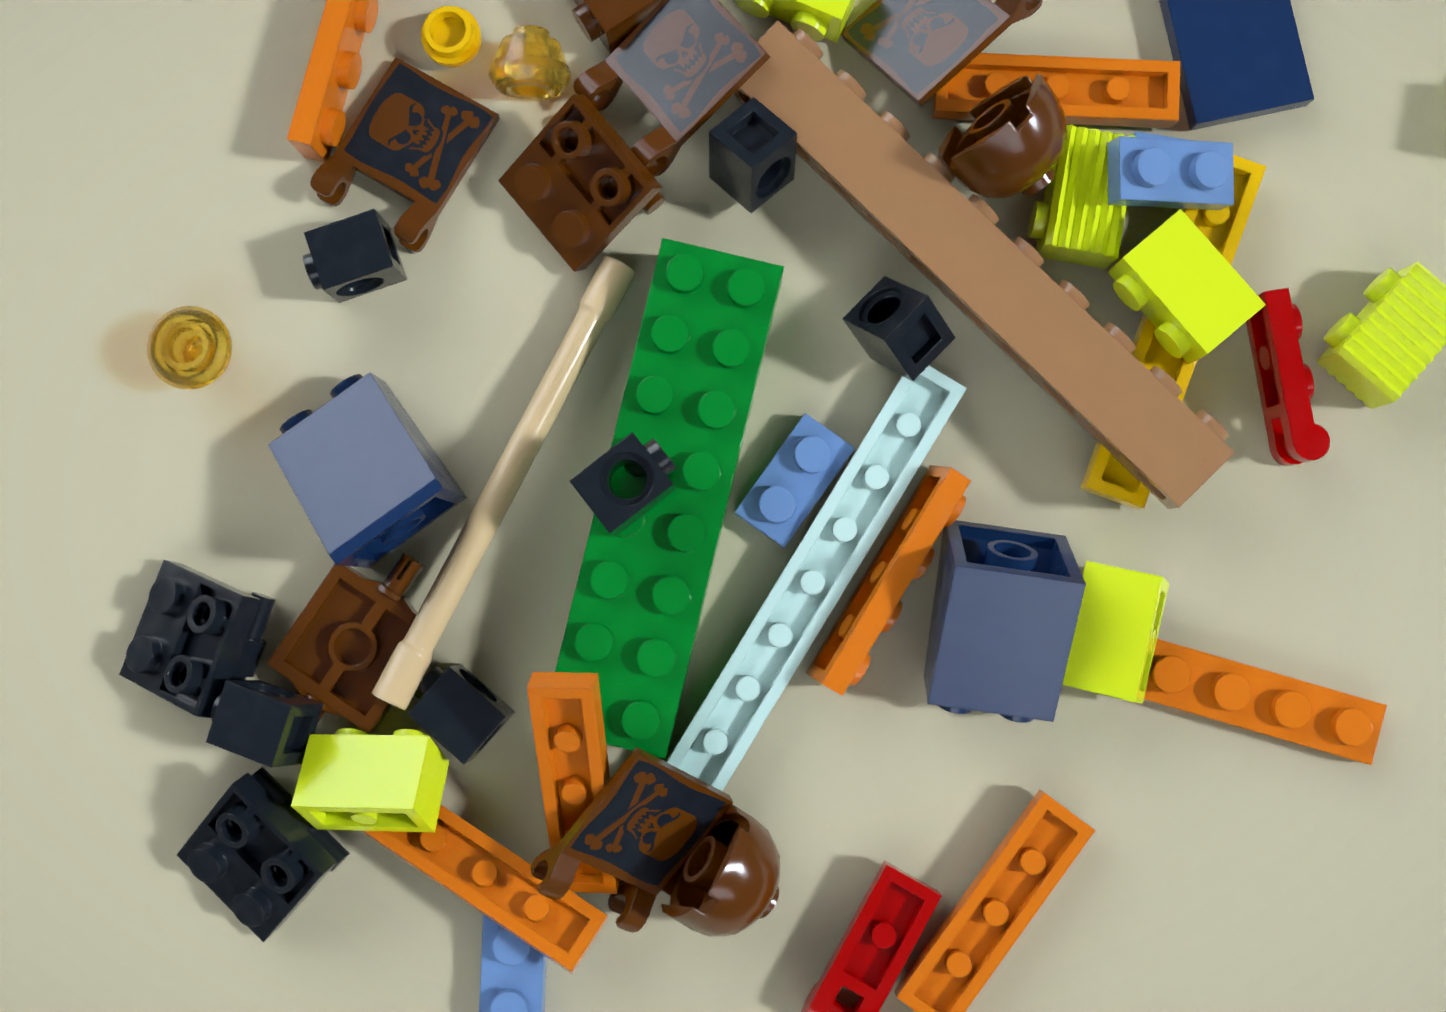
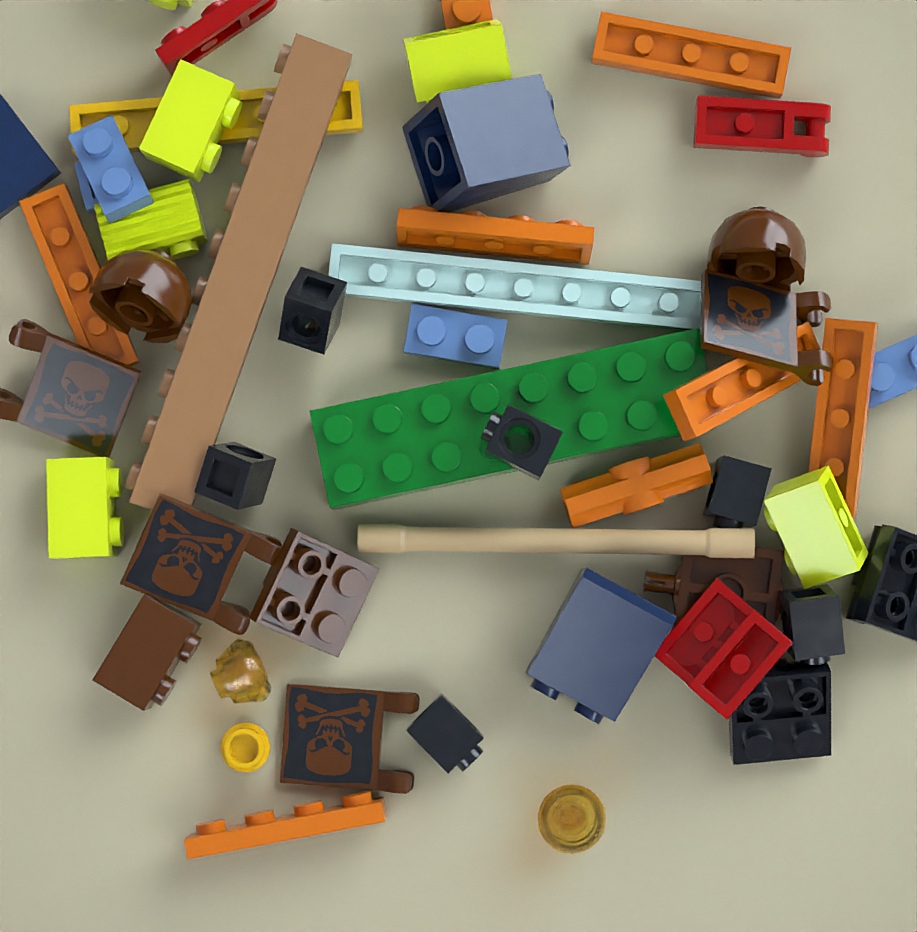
camera: 120 degrees left, 0 degrees up
(280, 606) = (722, 648): none -> red slope
(524, 599) = (636, 485): none -> orange piece

